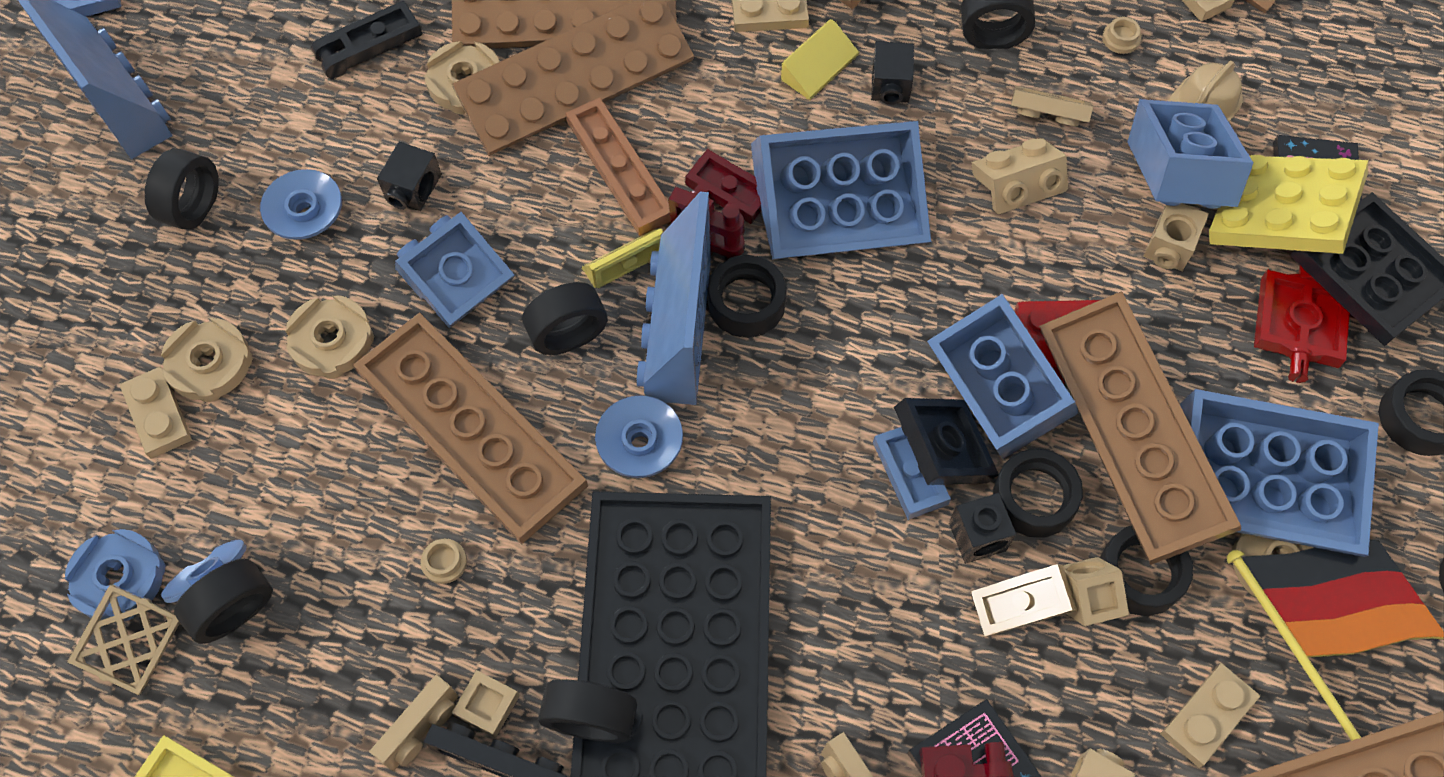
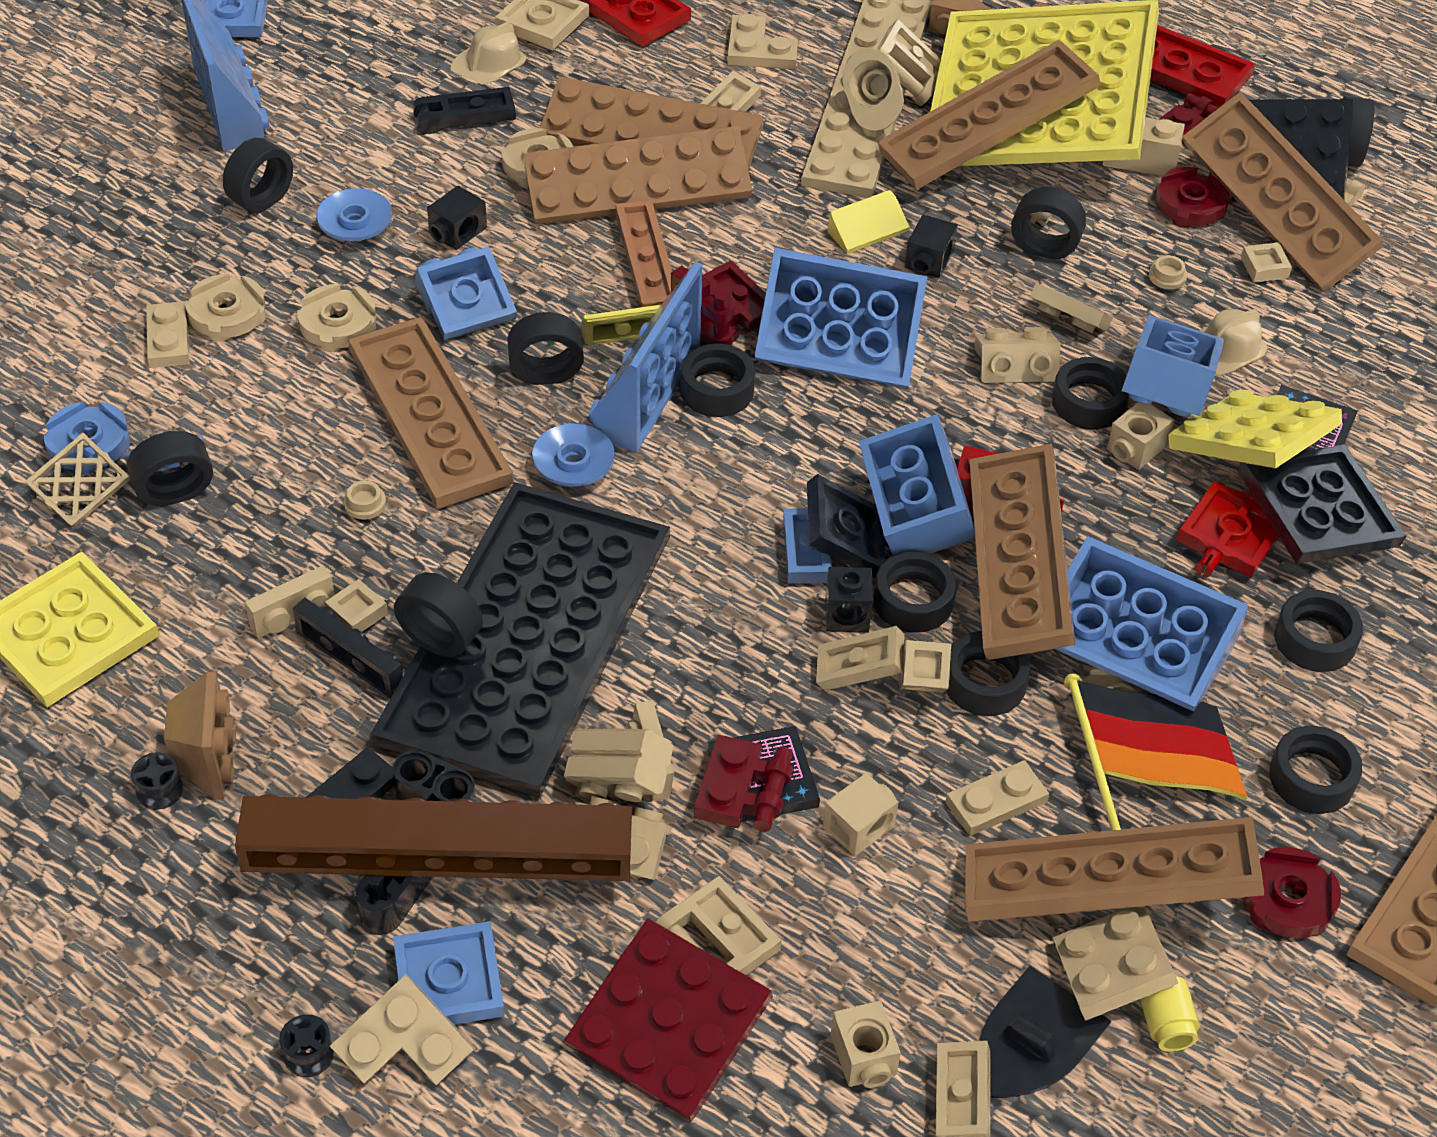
camera: 15 degrees right, 15 degrees down
(1101, 223) = (1083, 412): none -> black tyre

